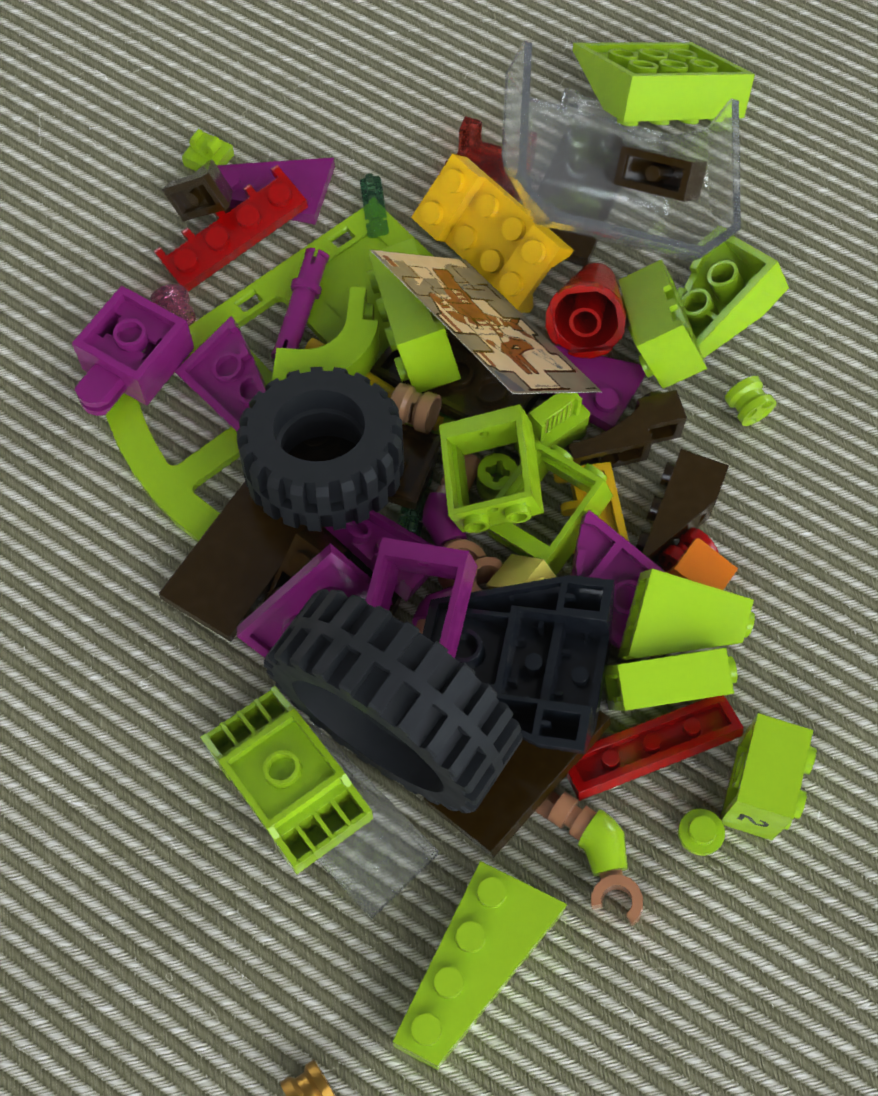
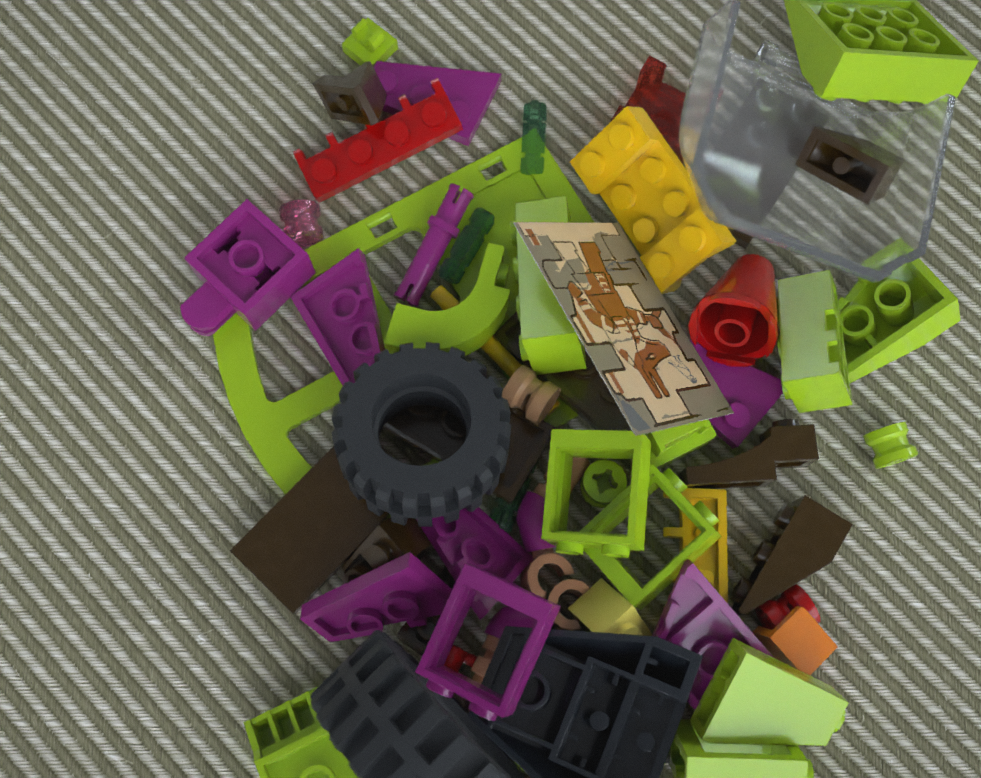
camera: 10 degrees right, 10 degrees up
(330, 302) = (466, 246): none -> clear green axle

